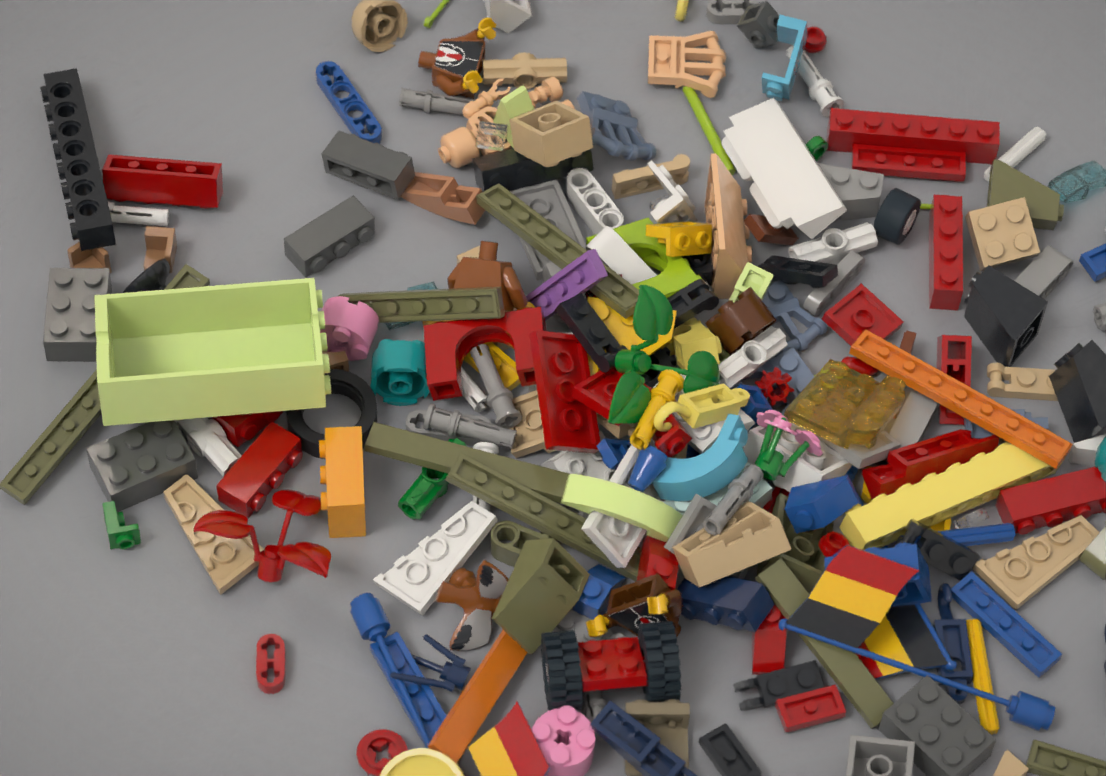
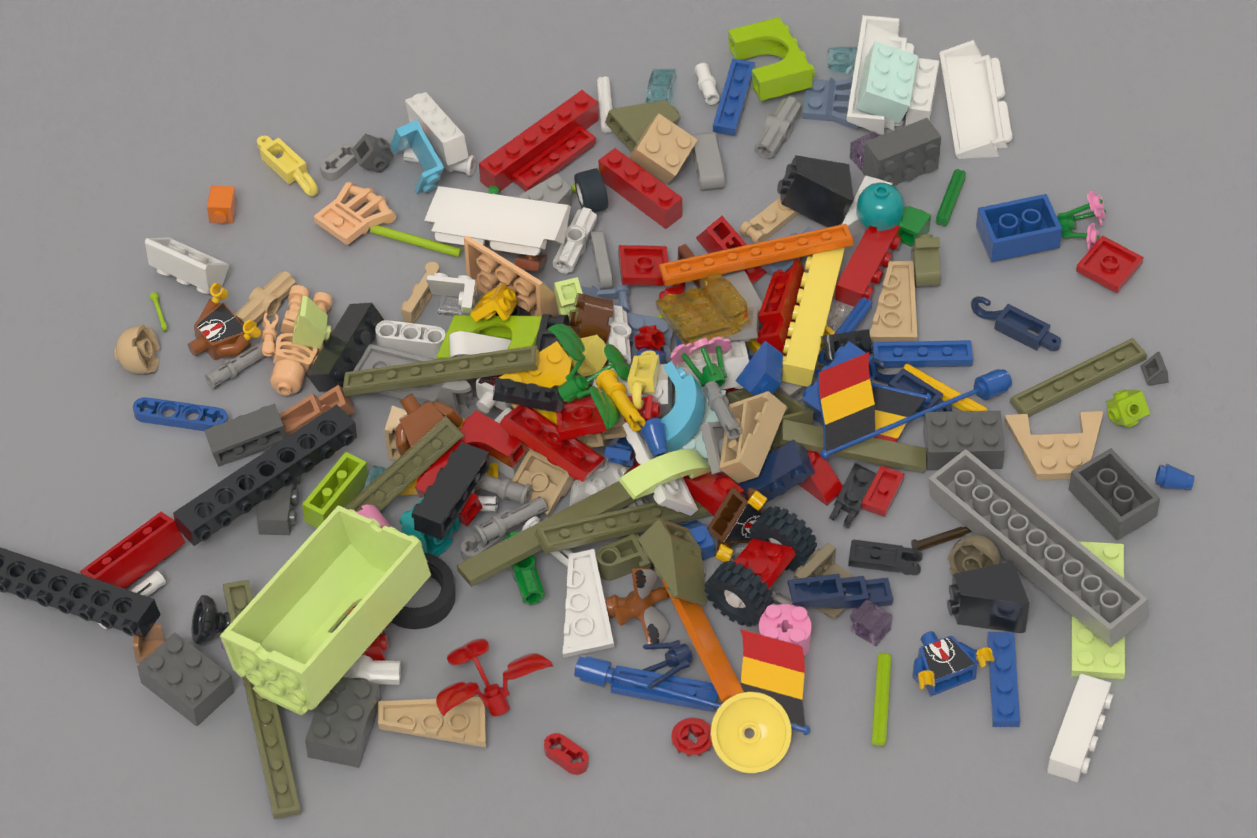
camera: 45 degrees left, 5 degrees down
(119, 534) = (377, 772): green bracket -> none
(160, 244) = (181, 597): medium nougat panel -> none
(260, 470) = (418, 658): red brick -> none
(344, 481) = (482, 613): light orange wedge -> none
(351, 208) = (265, 475): none -> black brick
(372, 272) = (335, 489): none -> lime brick
(434, 354) = (450, 490): none -> black brick
(491, 136) = (306, 349): clear tile -> none
(551, 133) = (348, 312): tan brick -> none
(569, 282) = (480, 378): medium lavender plate -> none
(614, 127) = (365, 284): sand blue plate -> none
(800, 271) = (579, 267): black plate -> none
(832, 543) = (793, 391): red plate -> none
(835, 49) = (440, 130): none -> white brick
(1003, 314) = (717, 192): black slope -> none

